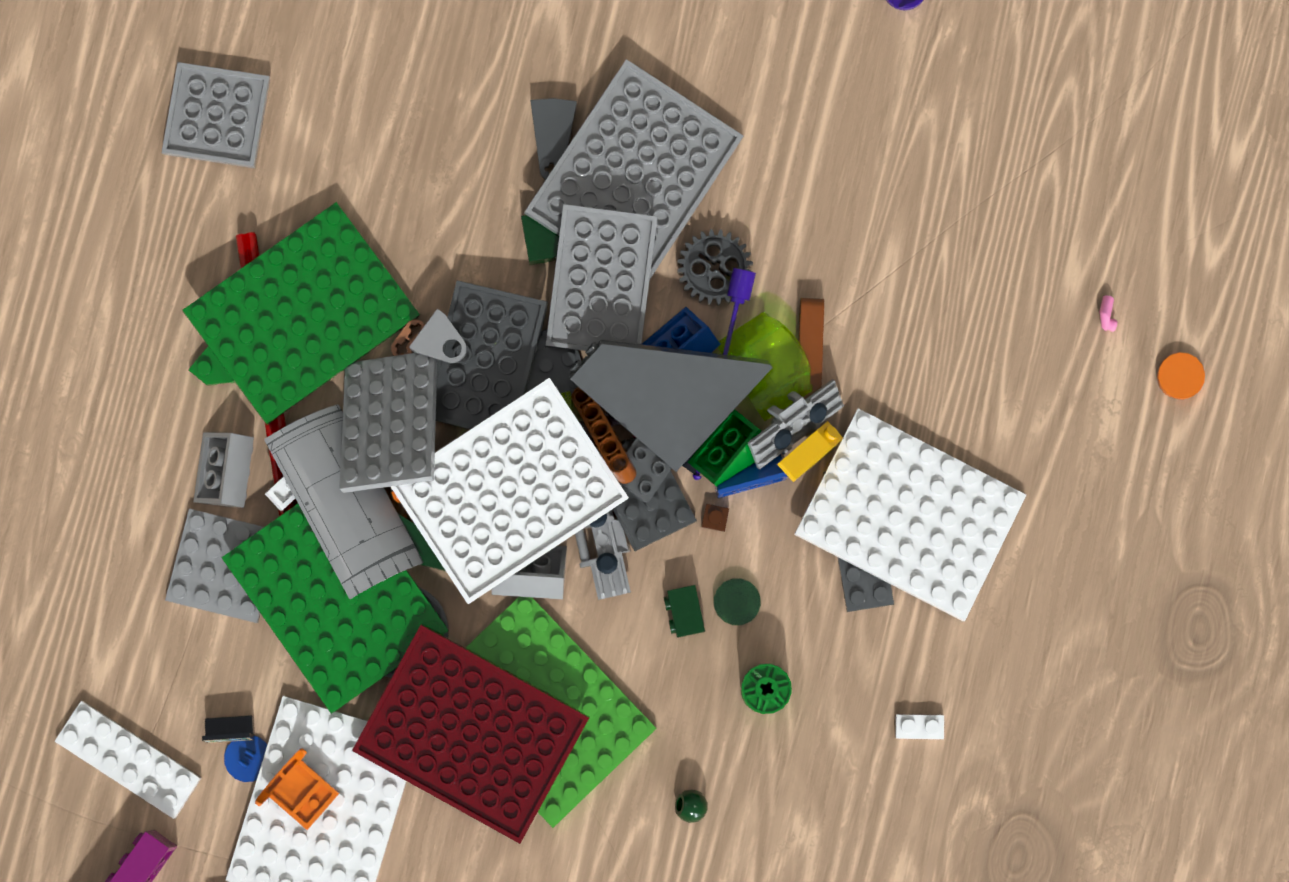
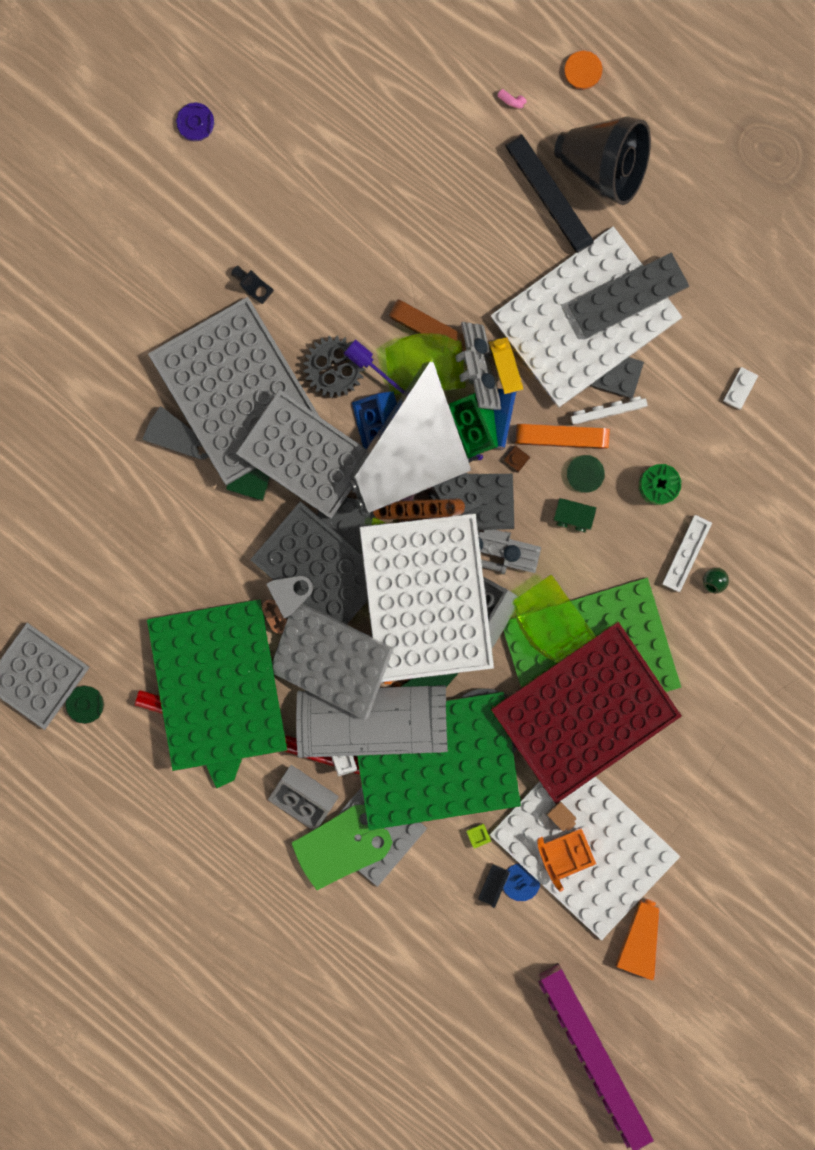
camera: 65 degrees left, 5 degrees up
(128, 759) = (479, 969): white plate -> none
(178, 532) = (333, 852): none -> bright green piece
(211, 183) = (85, 704): none -> dark green tile
(275, 684) = (478, 836): none -> lime plate
(341, 765) = (562, 816): none -> medium nougat brick
(553, 643) = (551, 620): none -> clear neon green slope
(705, 759) = (686, 553): none -> white plate
(760, 132) = (251, 282): none -> black bracket
(765, 555) = (562, 436): none -> orange beam
(813, 583) = (601, 412): none -> white plate
(957, 549) = (629, 295): none -> dark grey plate
(1025, 406) = (549, 193): none -> black beam
(1098, 449) = (608, 156): none -> black cone

